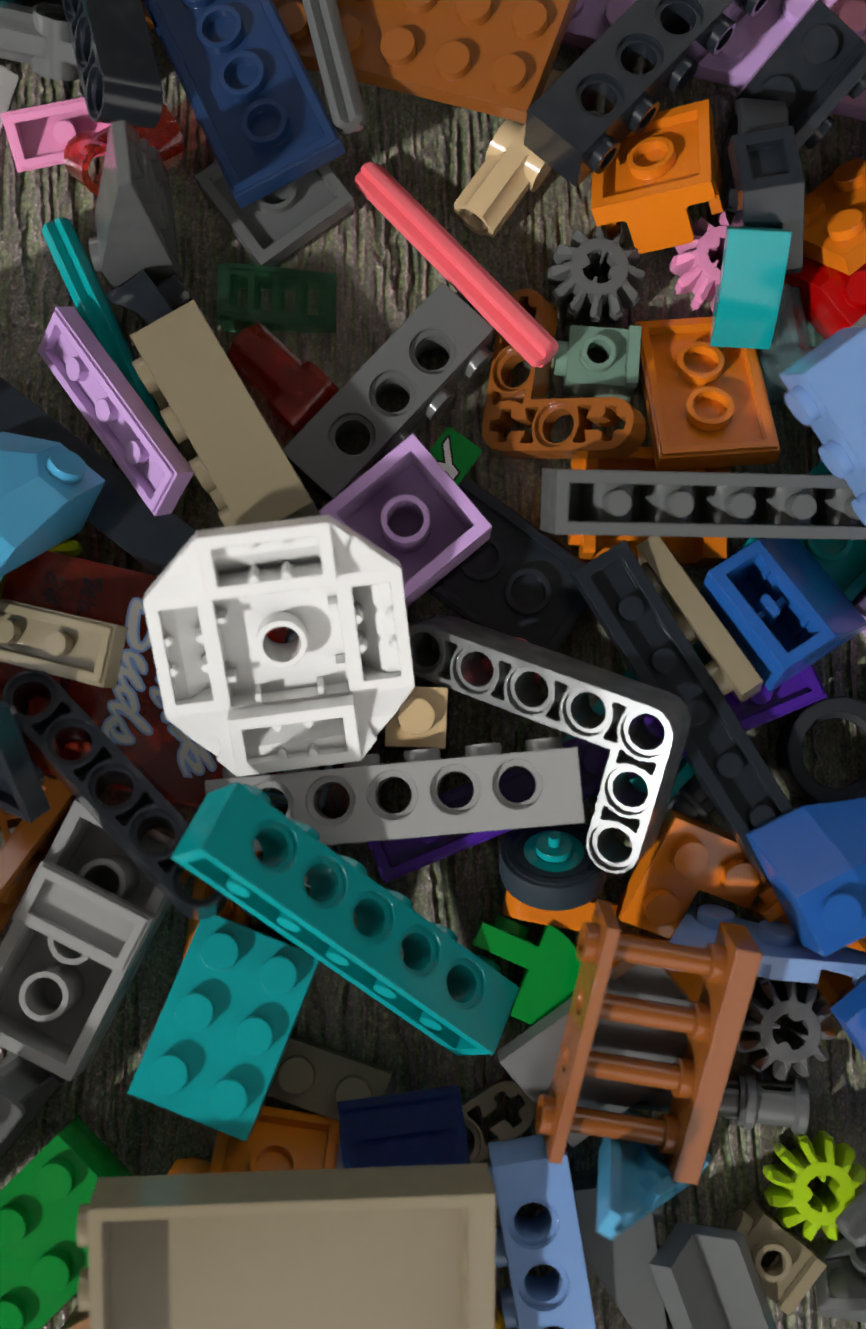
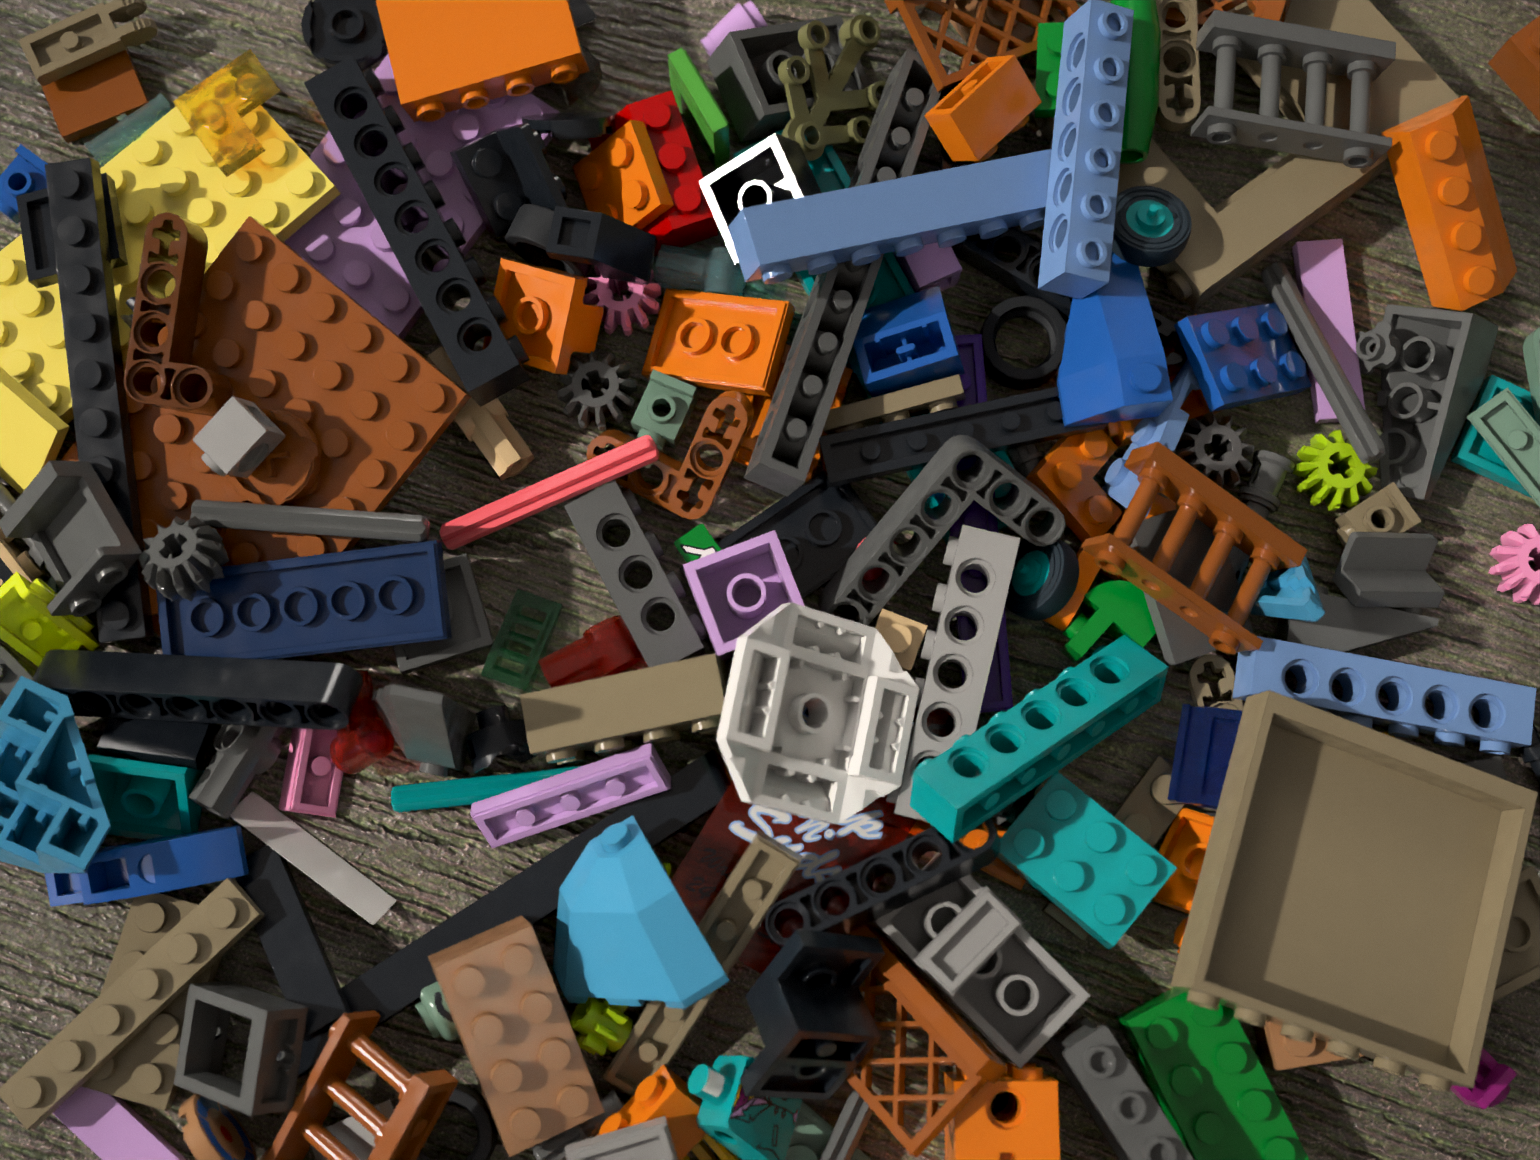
camera: 75 degrees left, 5 degrees down
(750, 287) = (657, 279): teal slope -> none

